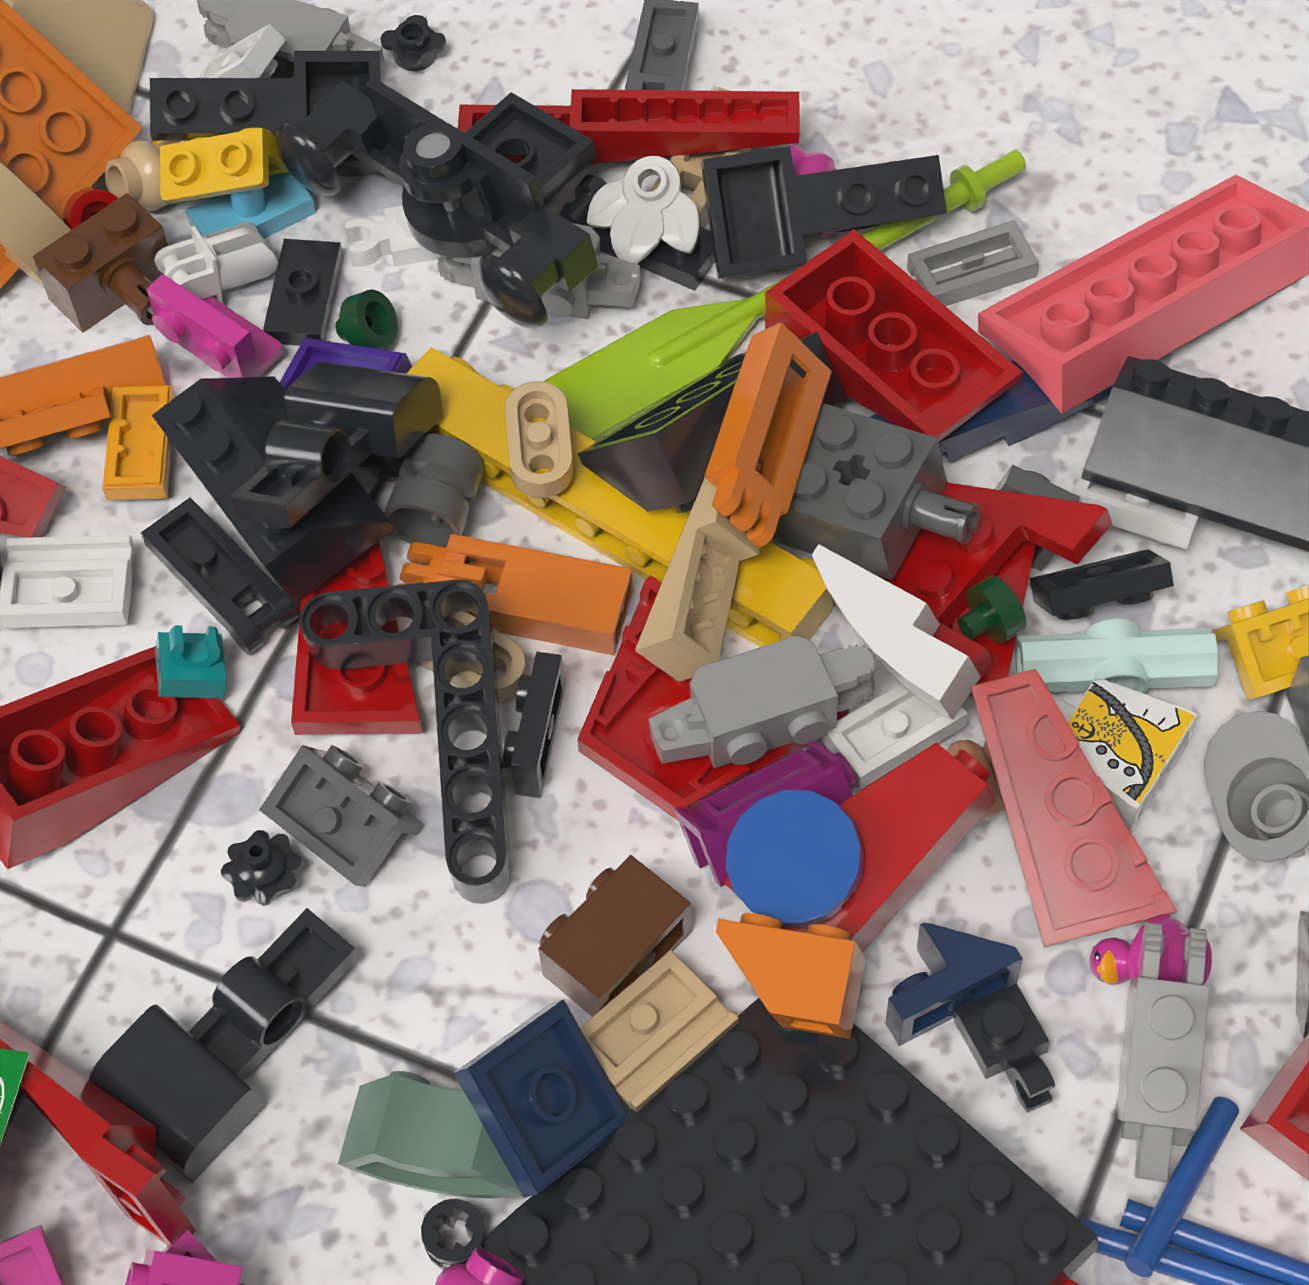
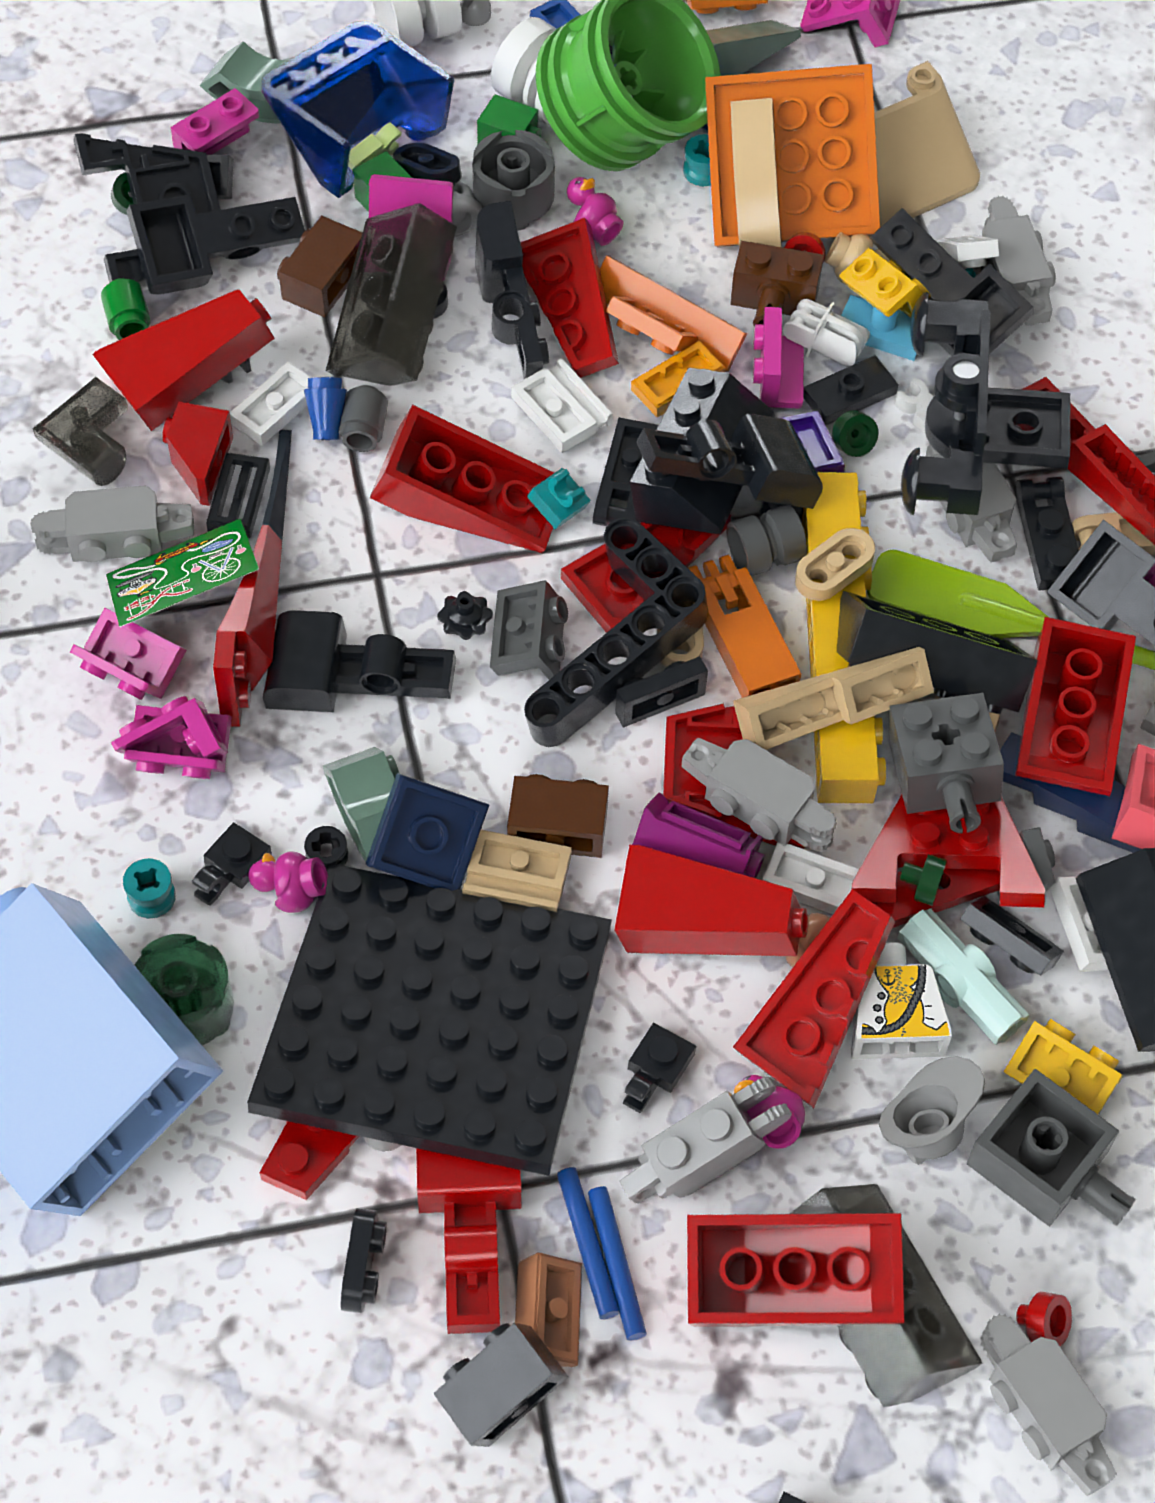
camera: 50 degrees right, 0 degrees up
(413, 43) = (1077, 327): black plate -> none
(642, 217) = (1053, 525): white plate -> none
(766, 432) = (936, 666): orange hinge -> none
(795, 858) = (665, 866): blue tile -> none
(800, 977) = (591, 914): orange slope -> none
(899, 633) = (857, 829): white slope -> none
(962, 973) = (677, 1011): dark blue slope -> none
(1181, 1187) = (630, 1209): blue bar -> none

